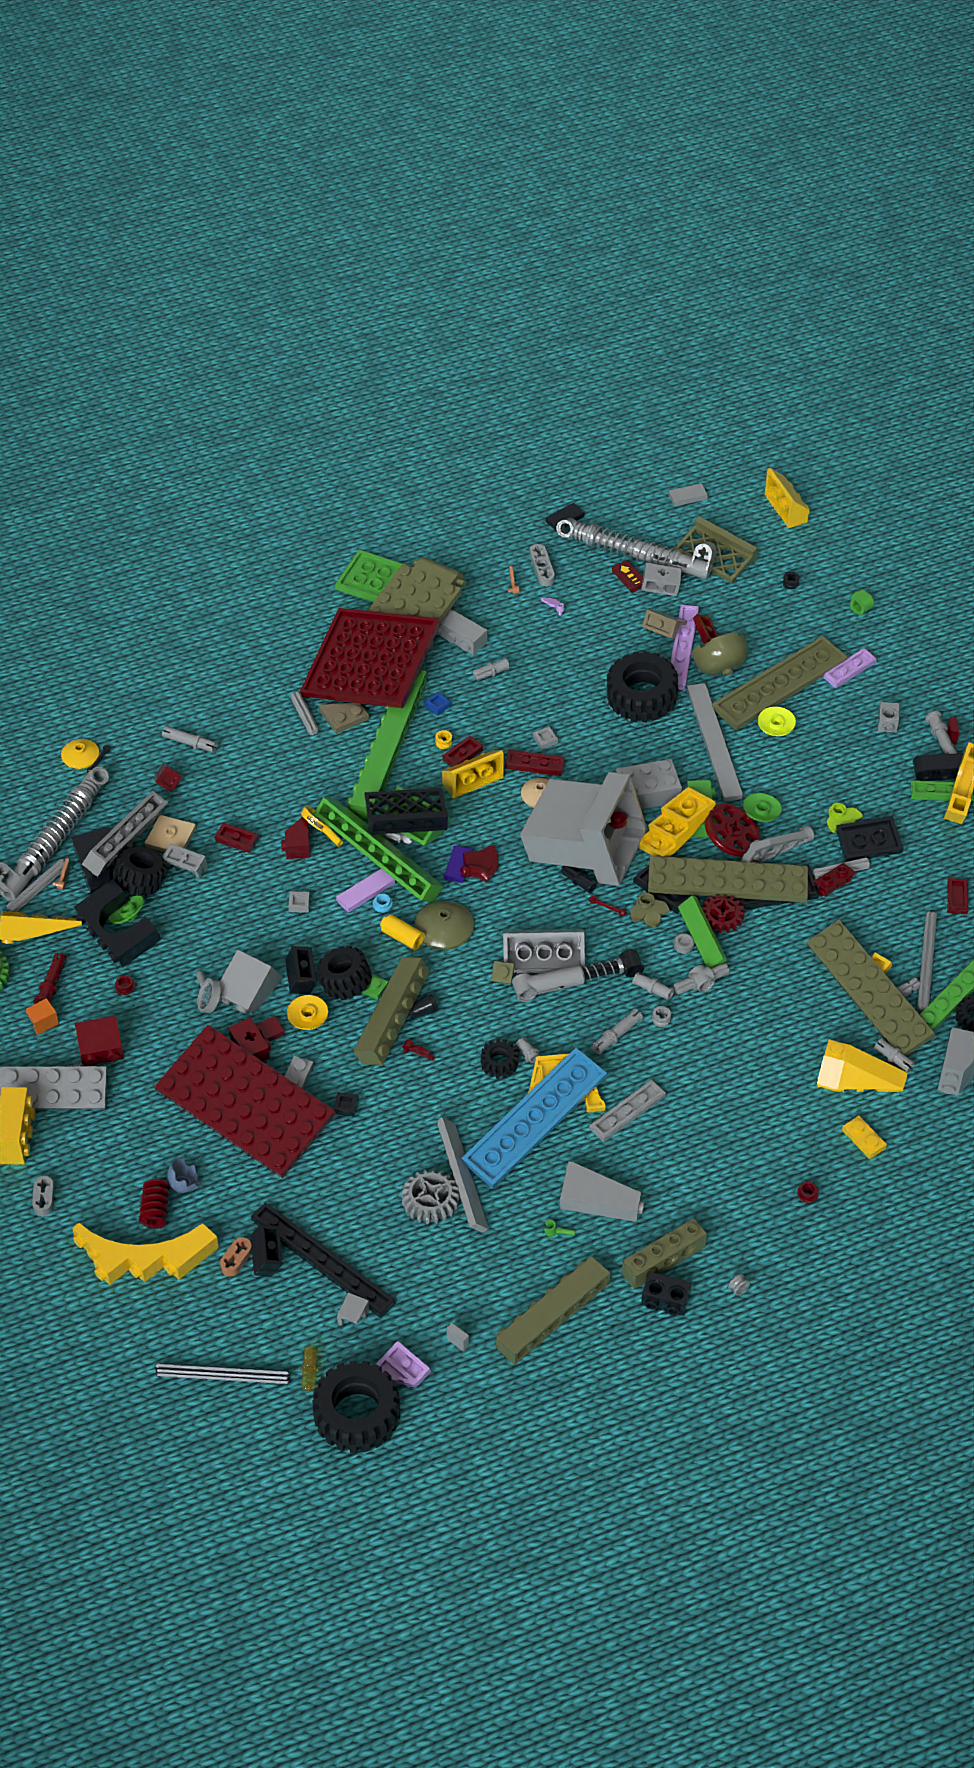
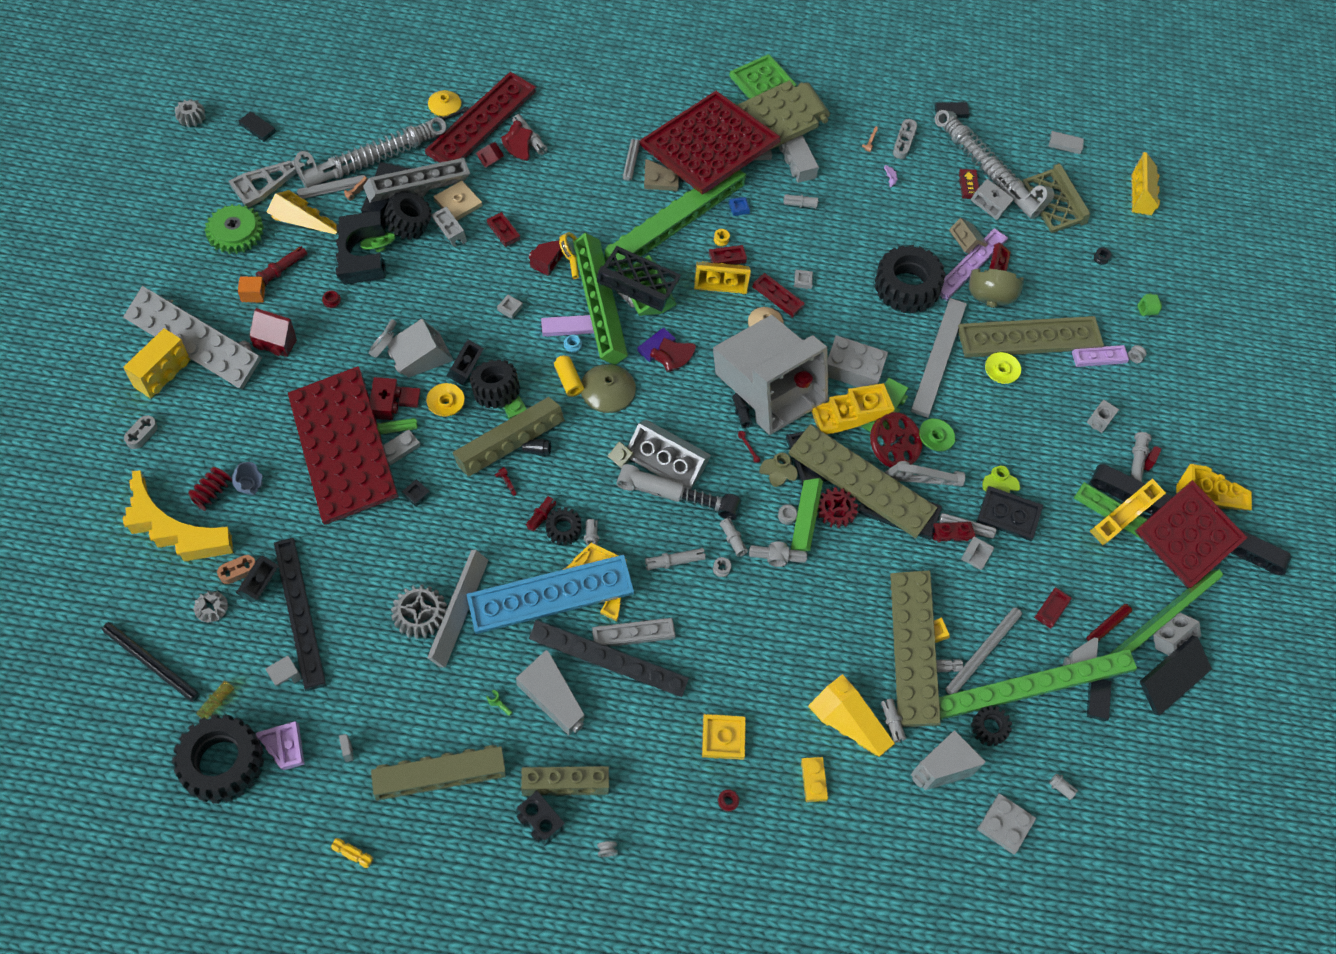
camera: 25 degrees right, 10 degrees up
(132, 750) = (481, 119): none -> dark red plate
(184, 751) = (517, 141): none -> dark red arm
(243, 1306) = (208, 614): none -> light grey gear
(283, 1056) = (397, 426): none -> bright green axle
(471, 1059) = (541, 513): none -> dark red axle
(529, 1413) = (352, 852): none -> yellow axle
(623, 1140) = (609, 658): none -> black plate
(767, 1146) = (723, 737): none -> yellow plate
(865, 885) = (977, 553): none -> light grey panel
(876, 652) = (1137, 354): none -> light grey bush

